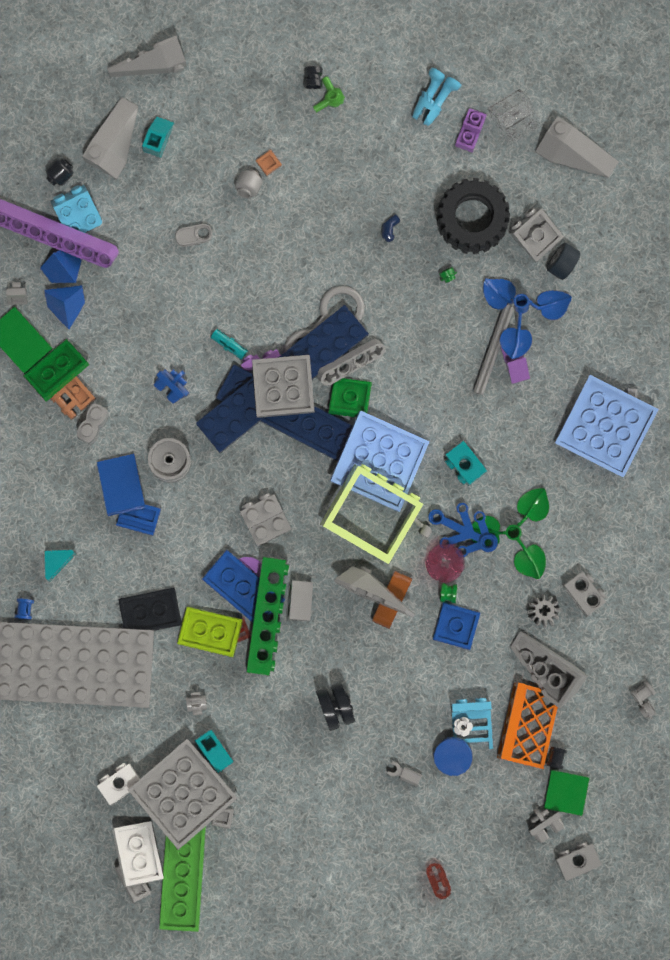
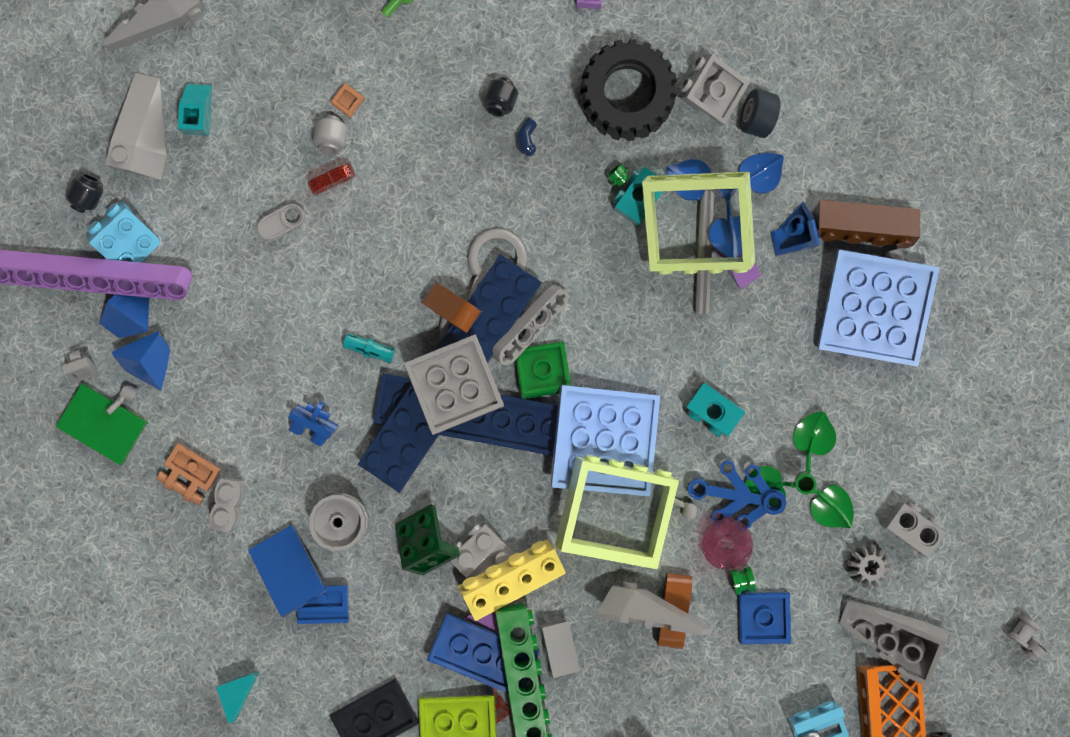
camera: 20 degrees left, 5 degrees up
(44, 324) = (127, 393): none -> light grey hand
(56, 370) = (159, 449): green tile -> none
(224, 495) = (421, 542): none -> dark green bracket
(239, 215) = (331, 179): none -> clear red beam
(247, 362) = (424, 348): medium lavender slope -> none
(280, 539) = (511, 579): none -> light yellow brick
(297, 331) = (451, 307): none -> dark orange beam
(379, 193) = (500, 97): none -> black head
(467, 286) = (627, 205): none -> teal brick
(531, 304) = (700, 182): none -> yellowish green window
(563, 356) = (796, 232): none -> blue slope
(617, 363) = (867, 223): none -> reddish brown brick

